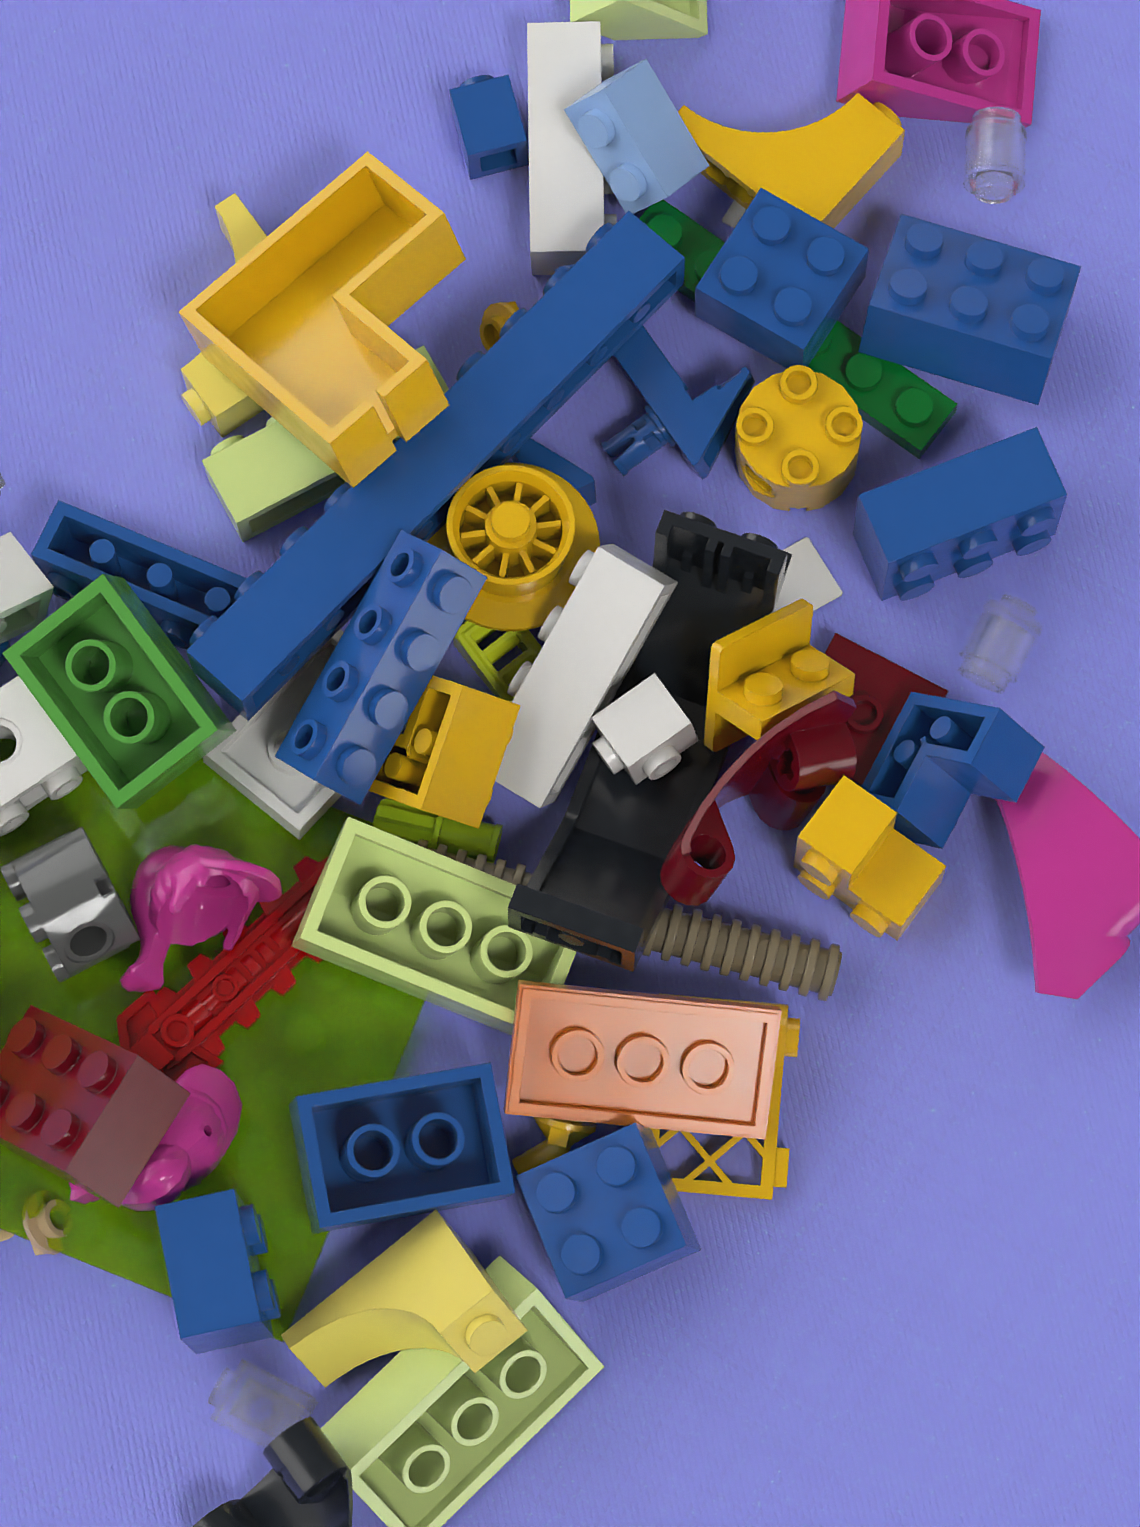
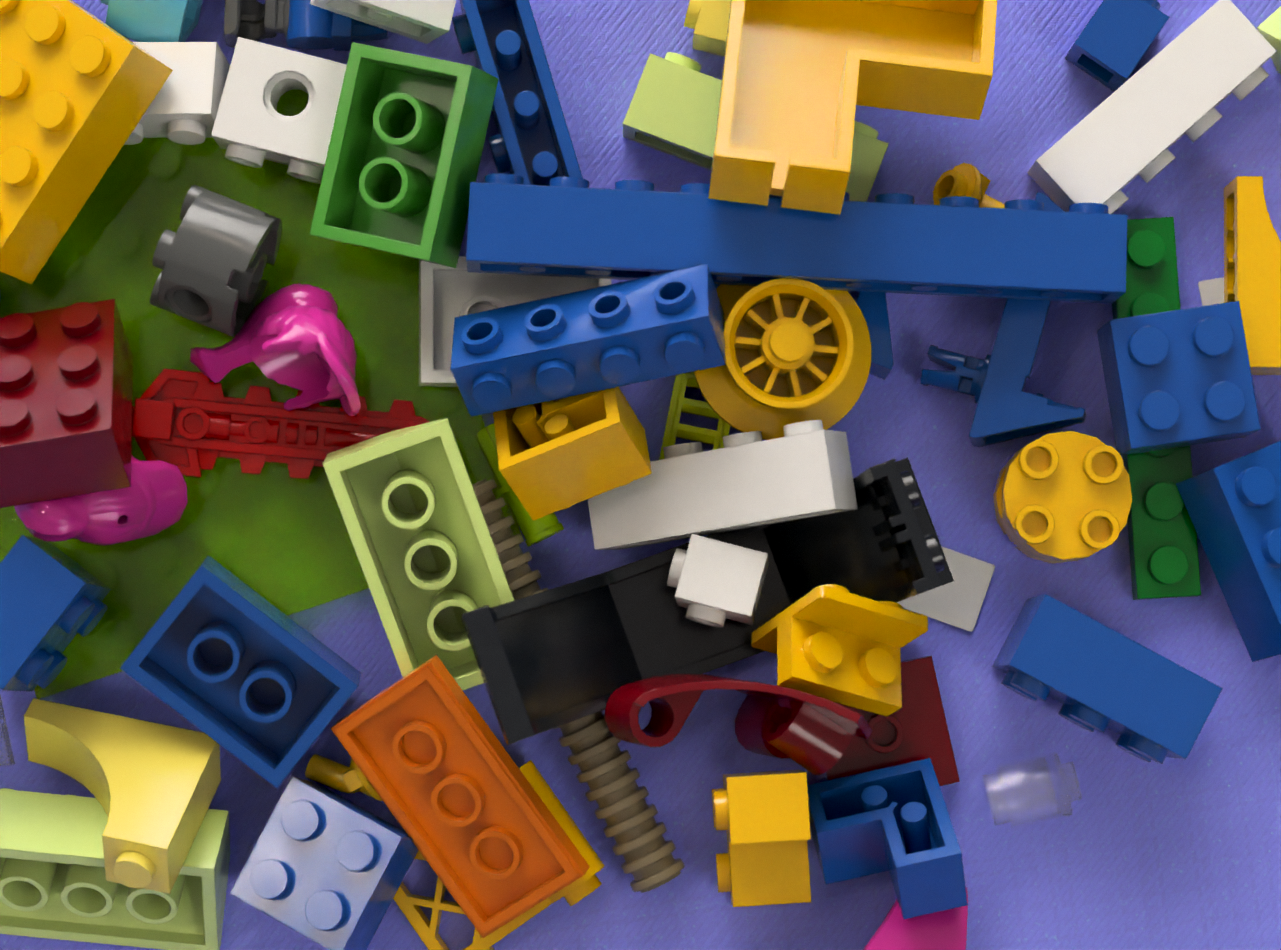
camera: 45 degrees right, 10 degrees up
(637, 137) = (1201, 163): light blue brick -> none

